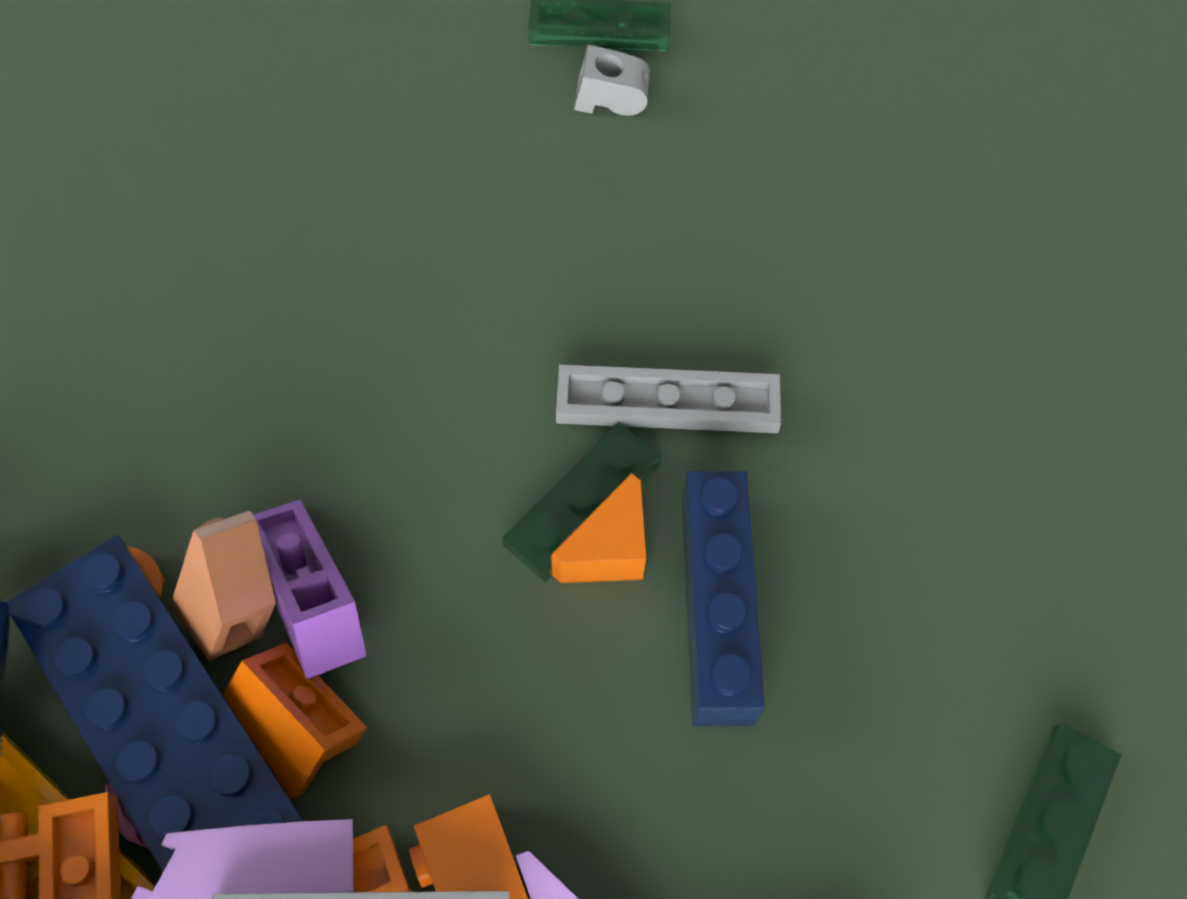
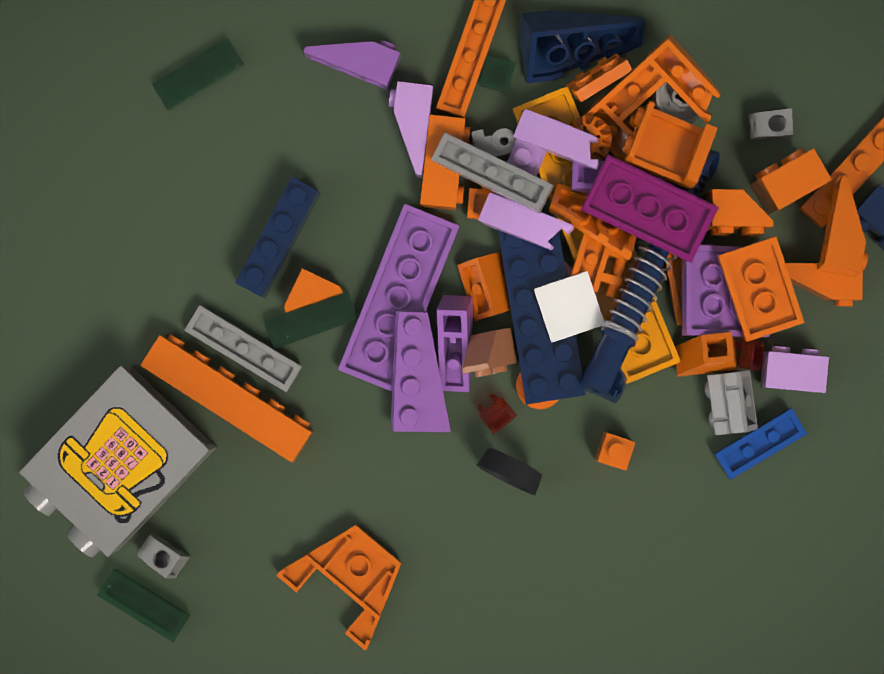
camera: 155 degrees left, 25 degrees up
(89, 748) = (569, 306): none -> white sticker
(102, 411) = (510, 471): none -> black tyre
(175, 501) = (497, 414): none -> clear red tile
(314, 191) = (358, 568): none -> orange wing
(348, 491) = (416, 384): none -> medium lavender wing
(447, 624) = (401, 284): none -> medium lavender plate
(648, 315) = (226, 397): none -> orange brick
(752, 153) = (115, 462): none -> light grey brick

